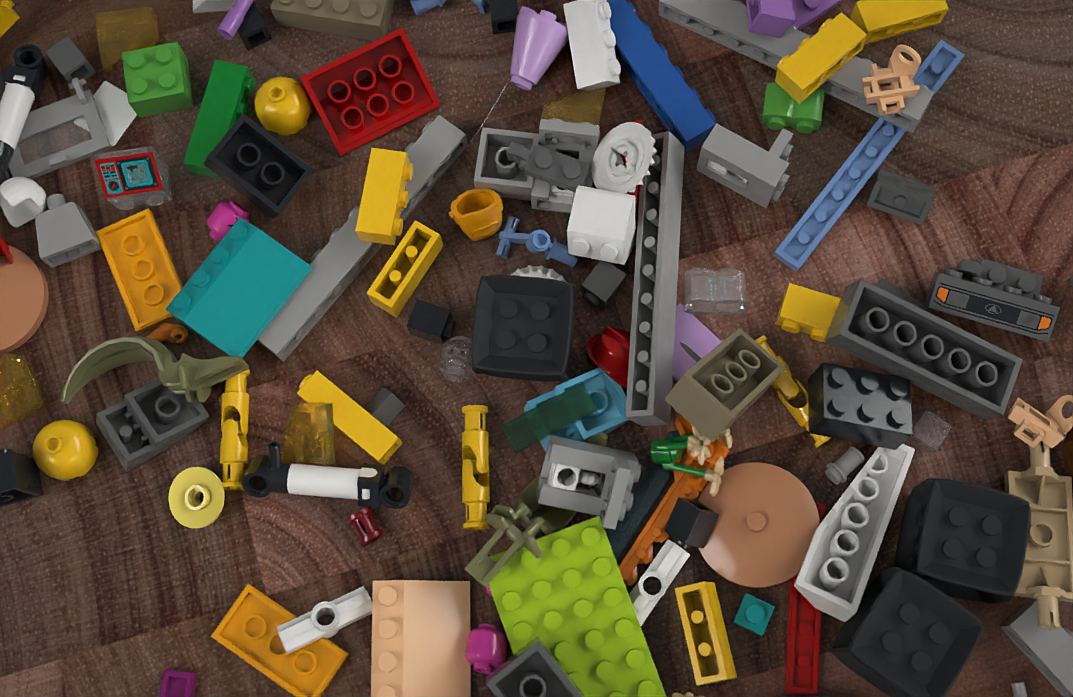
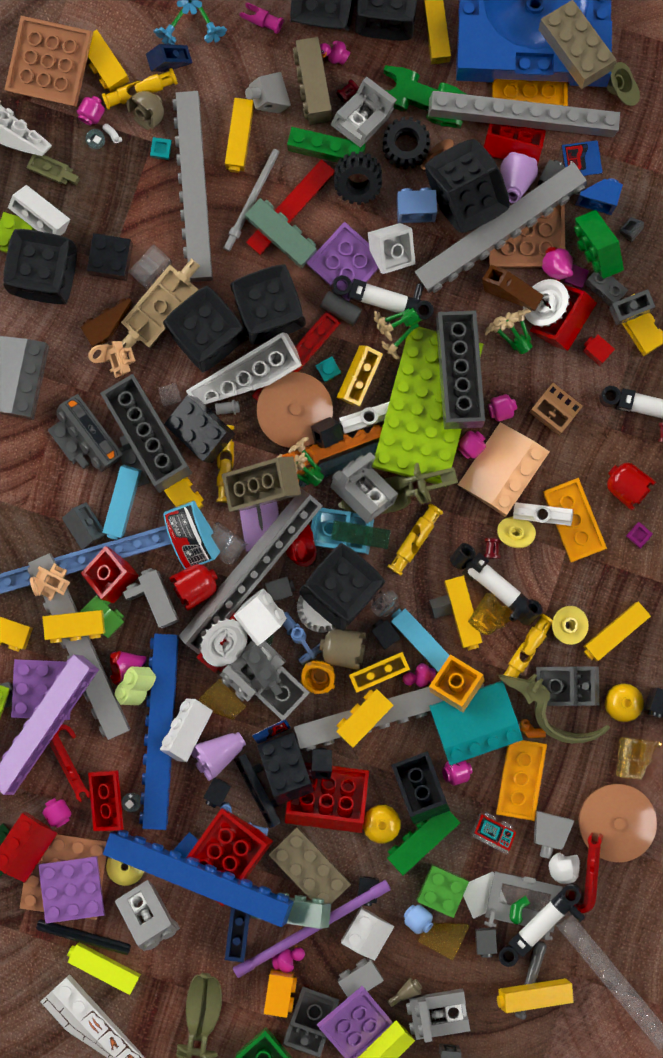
camera: 150 degrees left, 10 degrees up
(54, 119) = (516, 910): none -> green arm
(129, 532) = (616, 632): none -> yellow brick
(165, 28) = (418, 919): none -> light blue head
(292, 311) = (456, 683): none -> light orange brick
(339, 581) = (516, 532): none -> light yellow dish
(348, 304) = (422, 677): none -> dark pink animal
(380, 346) = (420, 638): none -> medium azure brick
(402, 119) = (321, 764): none -> black brick
(434, 33) = (257, 791): none -> black hinge
(440, 78) = (285, 768): none -> black brick
(466, 262) = (343, 648): none -> dark tan cylinder
(691, 50) = (135, 685): none -> yellowish green brick
(712, 212) = (194, 585): none -> red cylinder
(721, 70) = (121, 662): none -> hat
(763, 265) = (190, 535): none -> slope
(824, 154) = (109, 575): none -> red slope
(881, 249) = (121, 501): none -> medium azure brick

